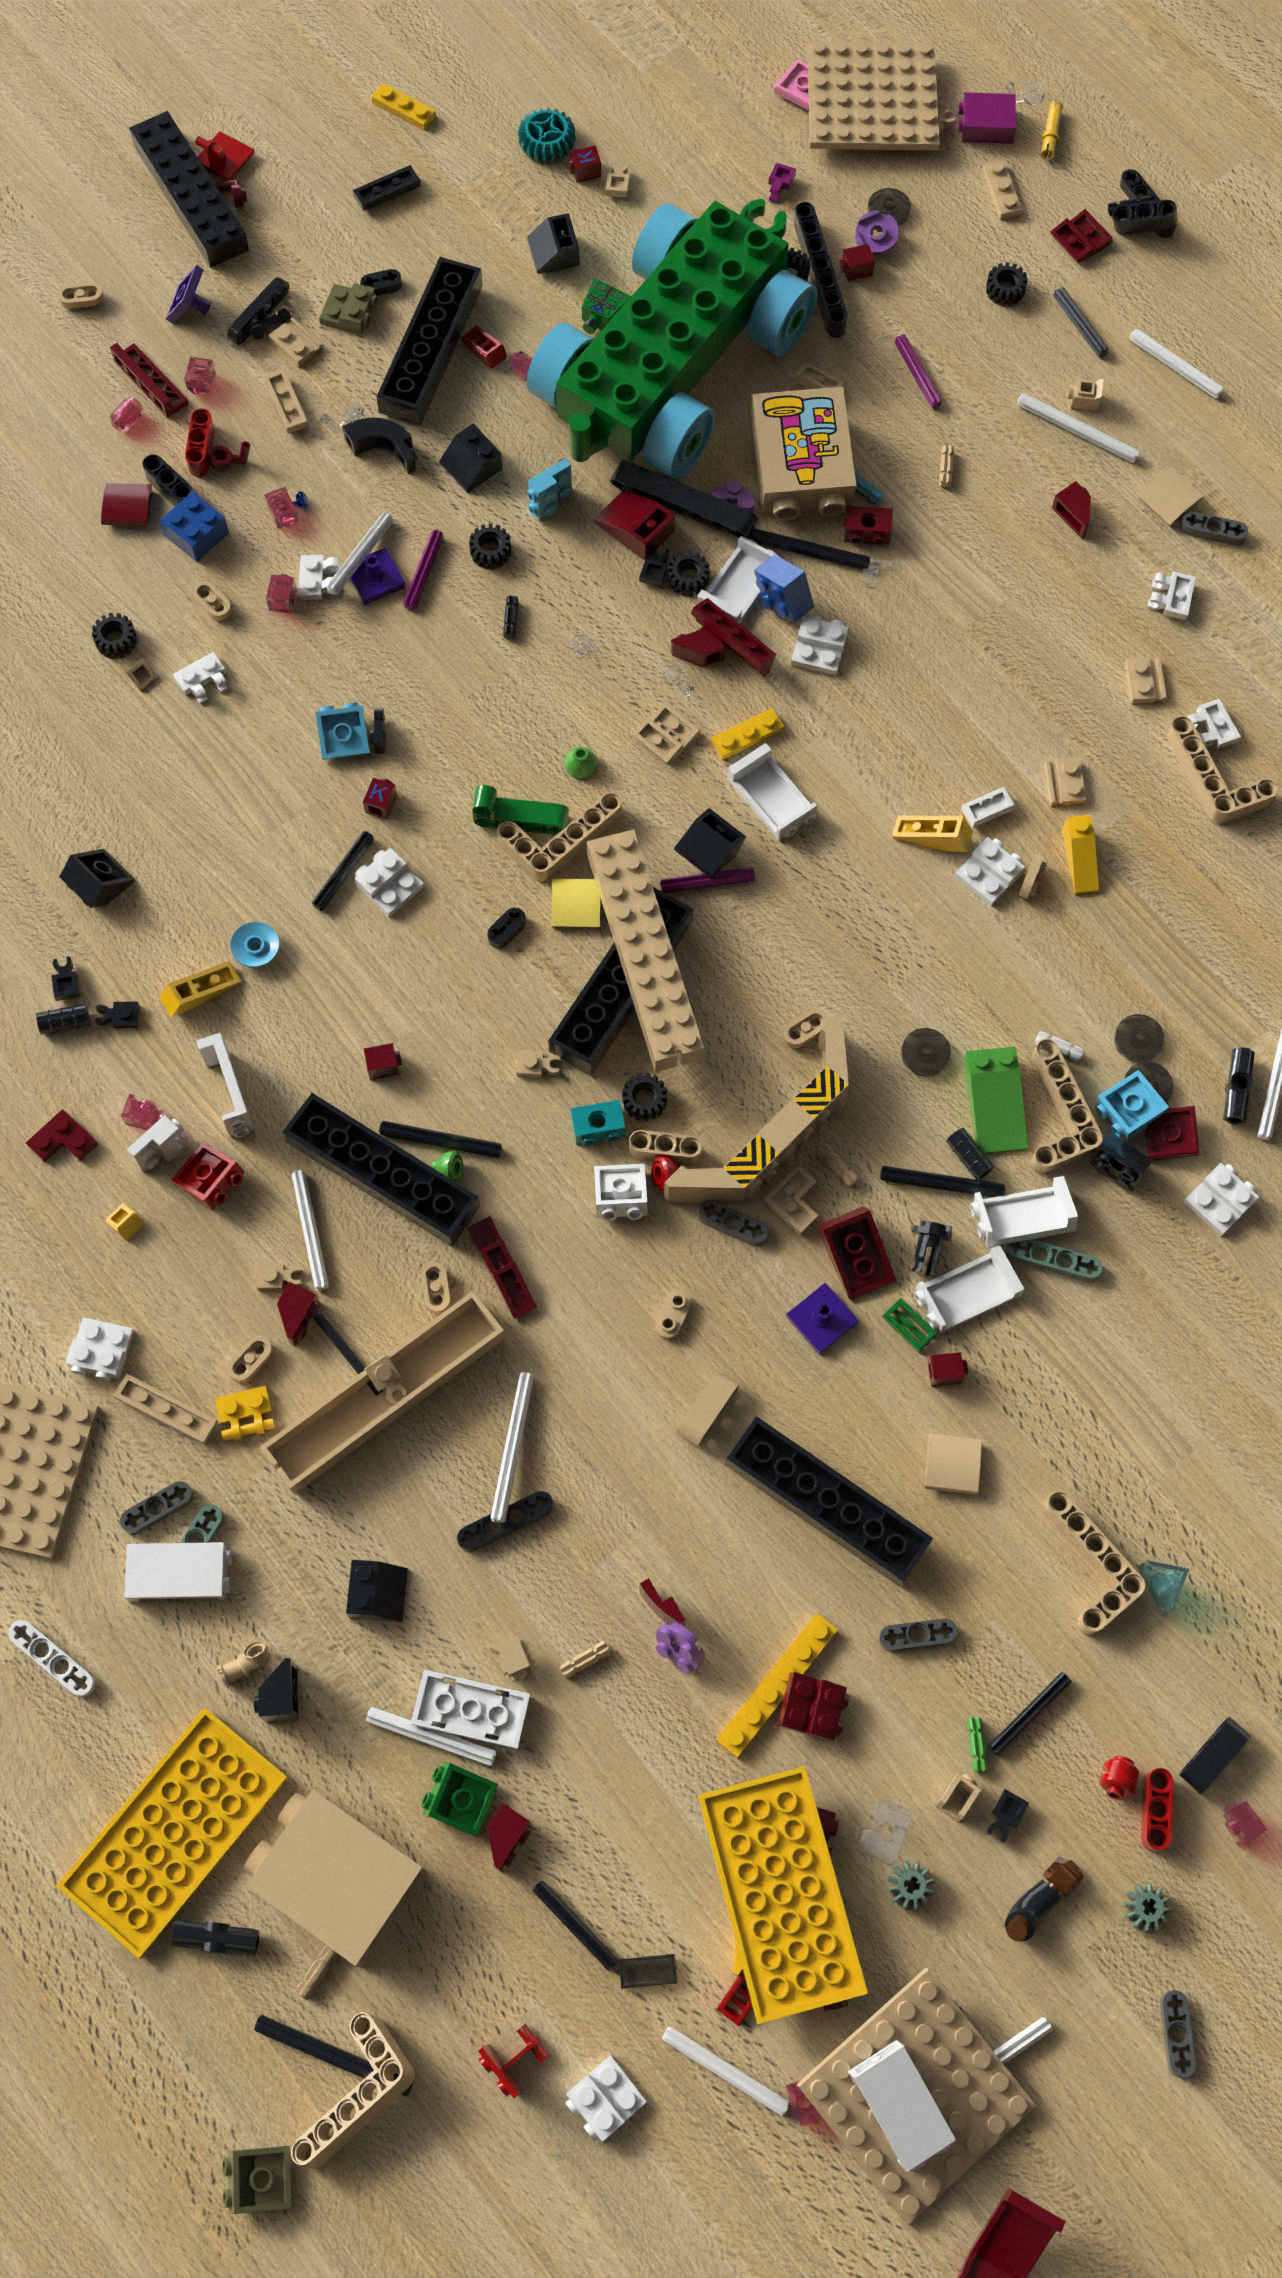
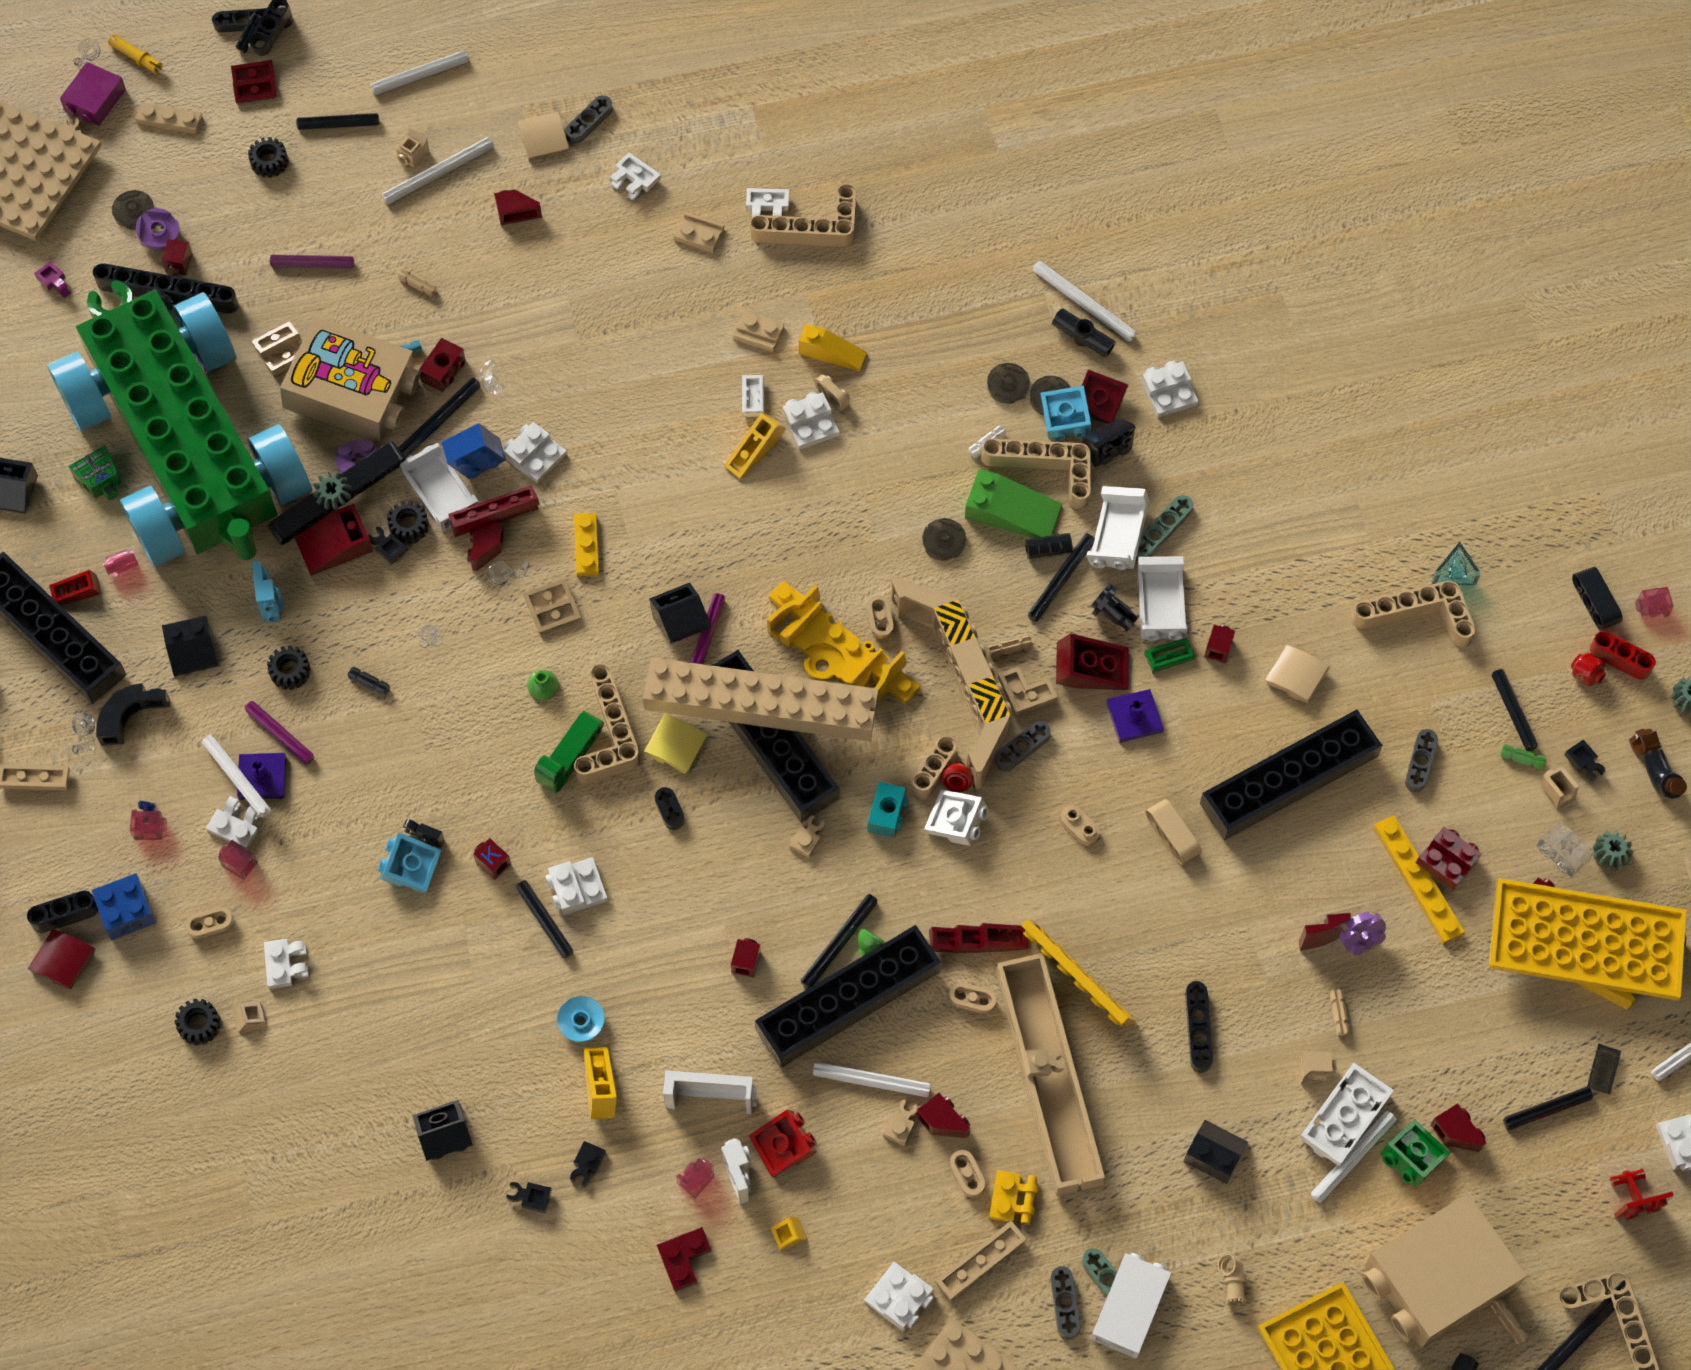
camera: 65 degrees left, 5 degrees down
(63, 1019) = (569, 1211): black axle -> none
(199, 442) = (39, 876): red beam -> none
(221, 457) = (61, 855): dark red plate -> none
(279, 1694) = (1275, 1256): black slope -> none
(344, 1349) = (996, 1092): black bar -> none
(501, 1376) = (1083, 981): none -> yellow plate
(512, 1448) = (1140, 993): white axle -> none
(644, 1111) = (880, 752): black tyre -> none
(675, 489) = (332, 499): none -> sand green gear
(726, 2010) = (1640, 1009): red slope -> none
(755, 999) = (836, 645): none -> yellow piece
(771, 793) = (655, 550): white panel -> none

